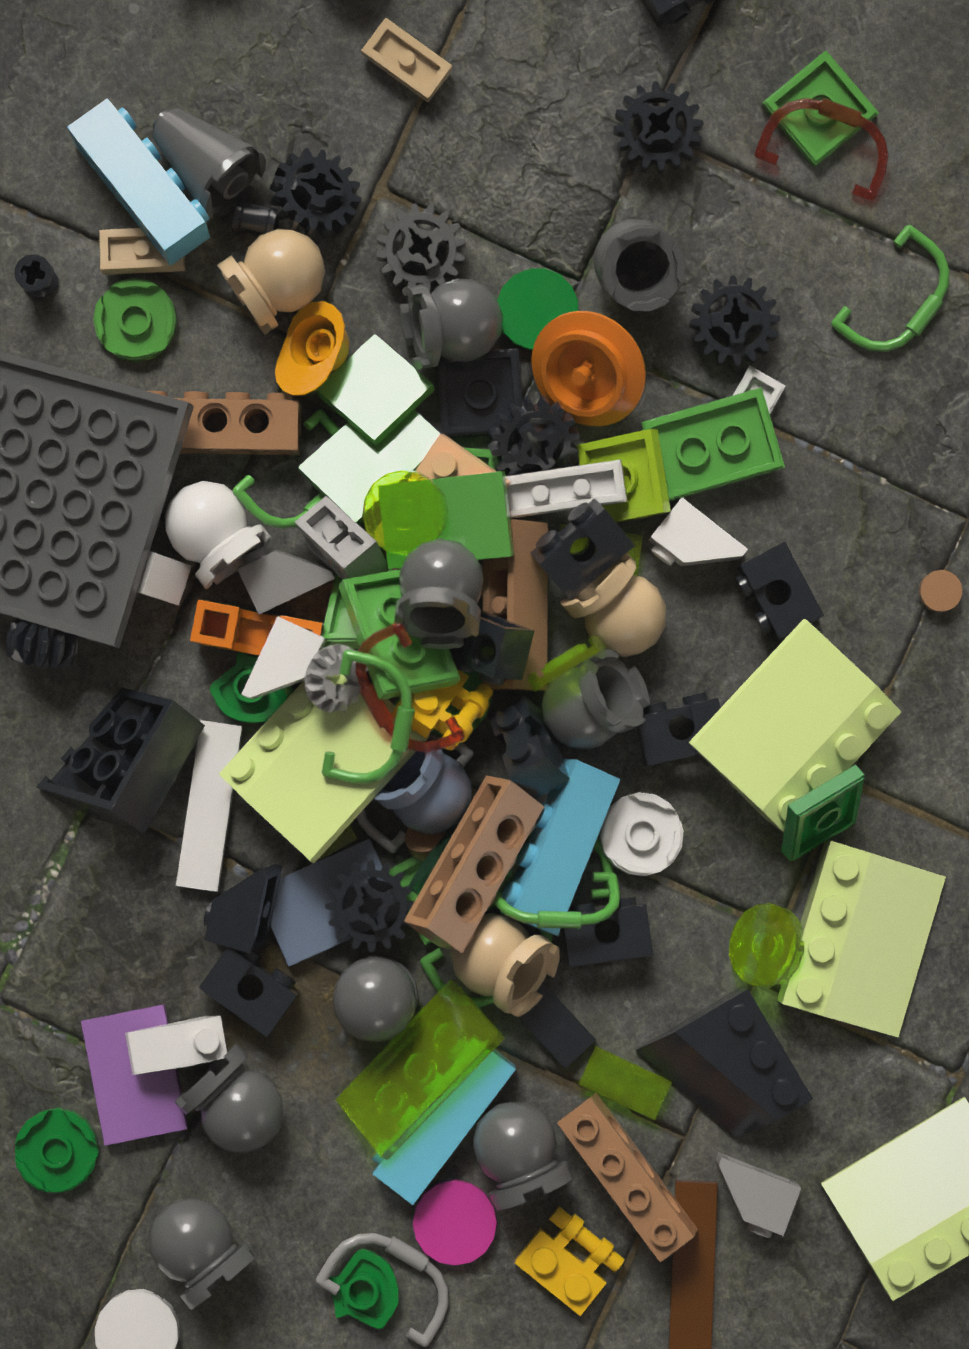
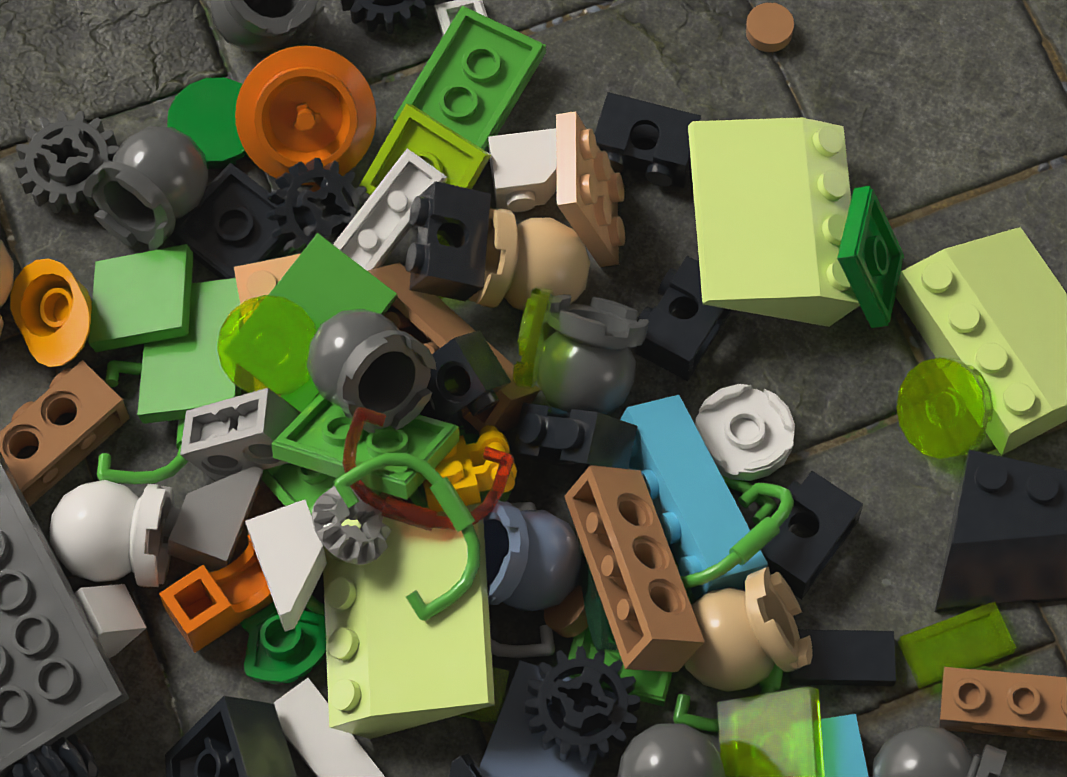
camera: 50 degrees left, 20 degrees down
(698, 600) = (588, 189): none -> light nougat plate

